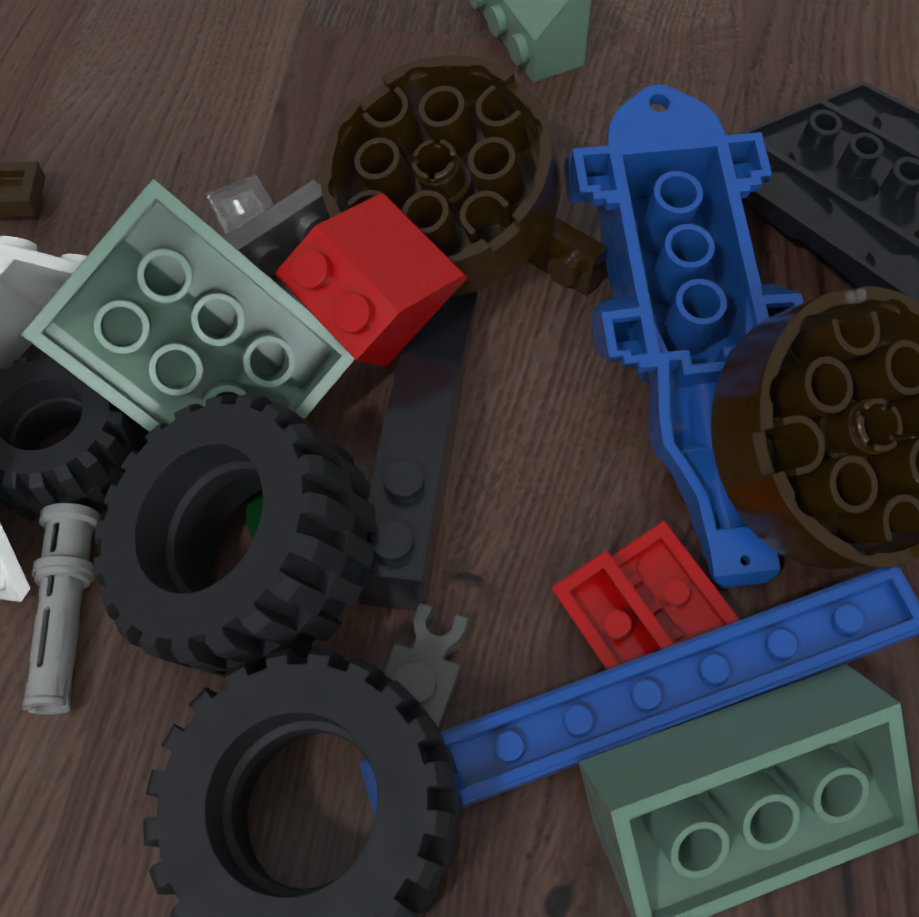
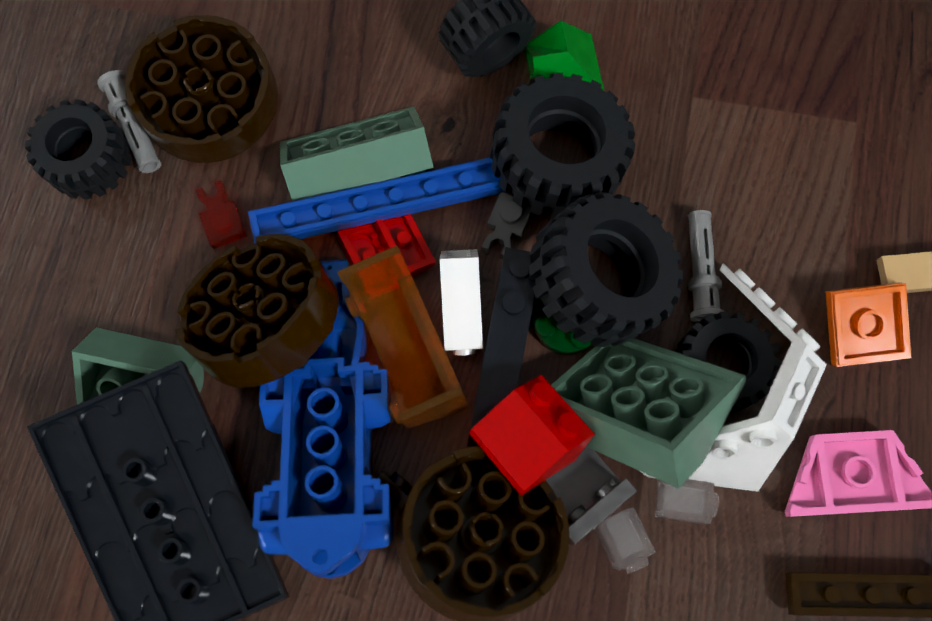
camera: 175 degrees left, 15 degrees up
(501, 523) = (461, 301): none -> white slope
(563, 406) = (404, 338): none -> clear orange windscreen

